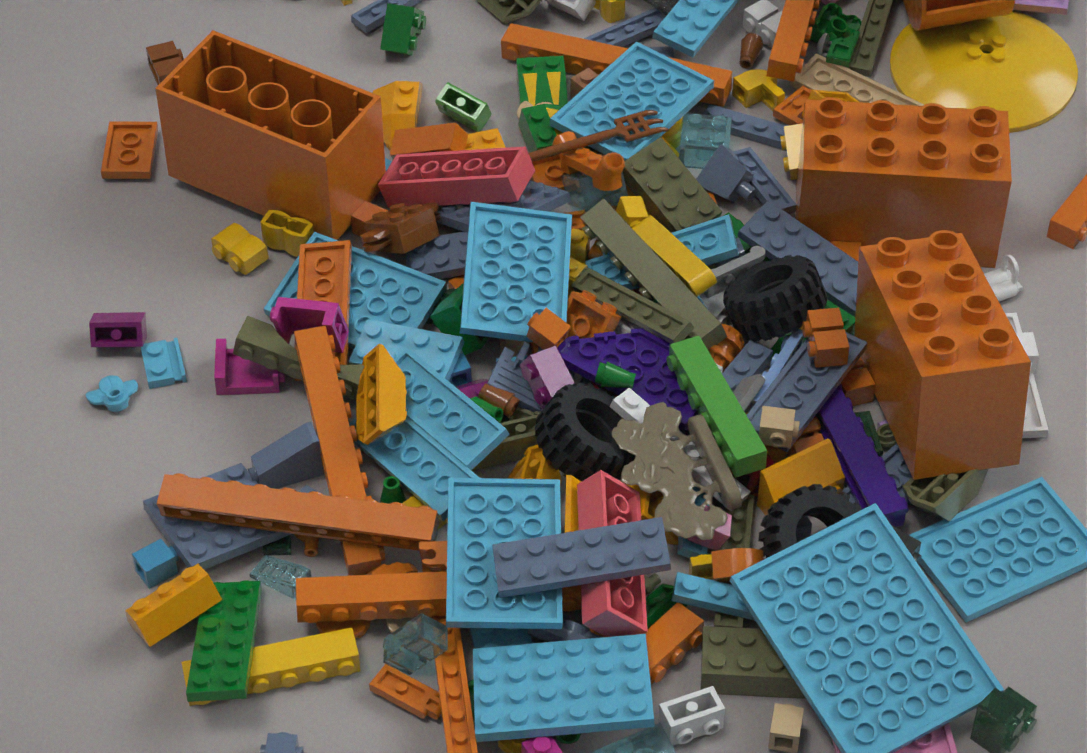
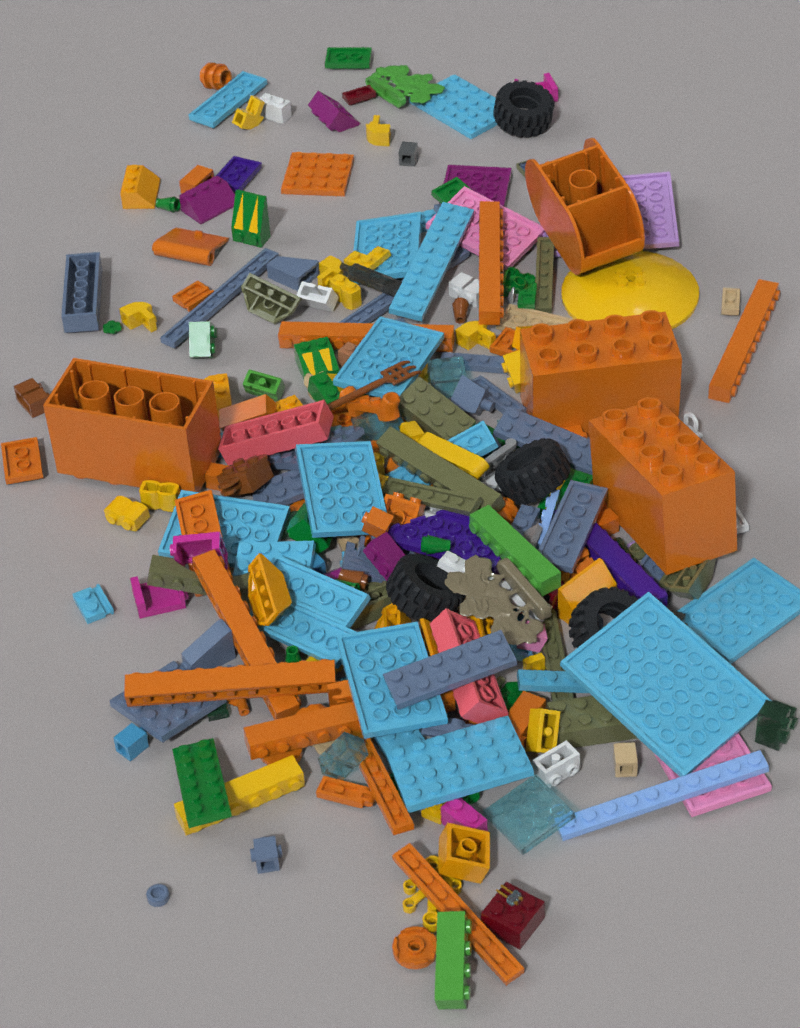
camera: 10 degrees left, 5 degrees down
(113, 393) = (61, 631): medium azure plate -> none
(118, 329) = (53, 586): magenta brick -> none
(173, 605) = (155, 765): light orange slope -> none
(284, 584) = (235, 737): clear light blue slope -> none
(686, 664) = (542, 730): none -> yellow brick
(732, 561) = (555, 654): orange brick -> none
(778, 426) = (563, 555): tan brick -> none
(826, 342) = (579, 489): orange piece -> none

